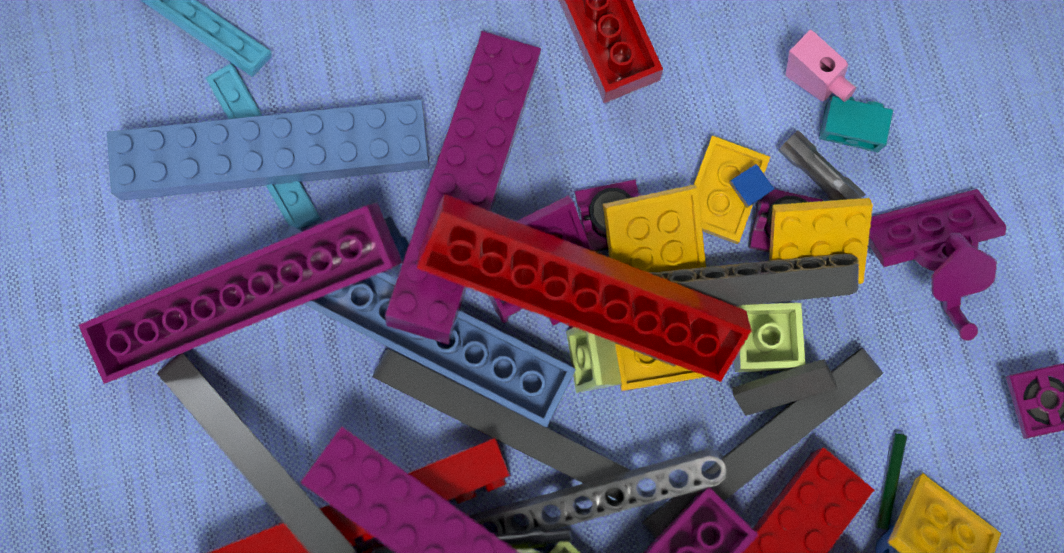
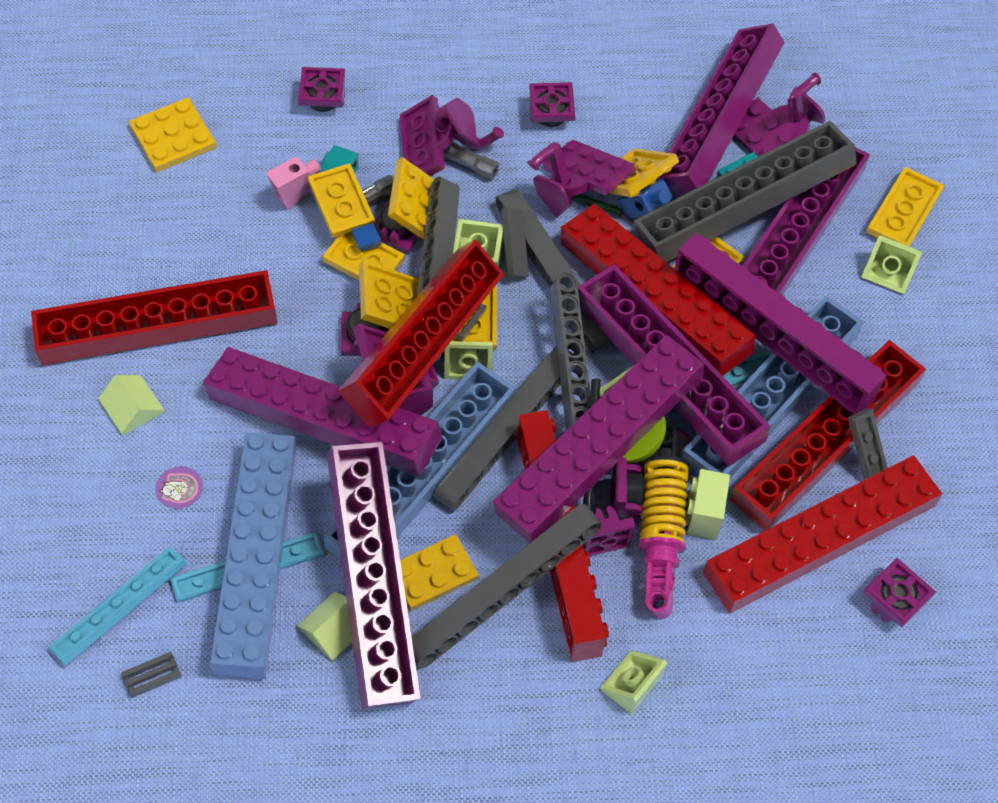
camera: 85 degrees left, 20 degrees down
(98, 53) = (150, 674): none -> dark grey tile
(195, 252) = (329, 626): none -> yellowish green slope
(288, 369) = (436, 572): none -> yellow plate
(355, 43) = (179, 487): none -> sticker
(798, 138) = (340, 200): none -> yellow plate
(916, 316) = (479, 163): none -> flat silver axle
(931, 456) = (574, 171): none -> magenta plate
(988, 70) = (322, 88): none -> magenta piece

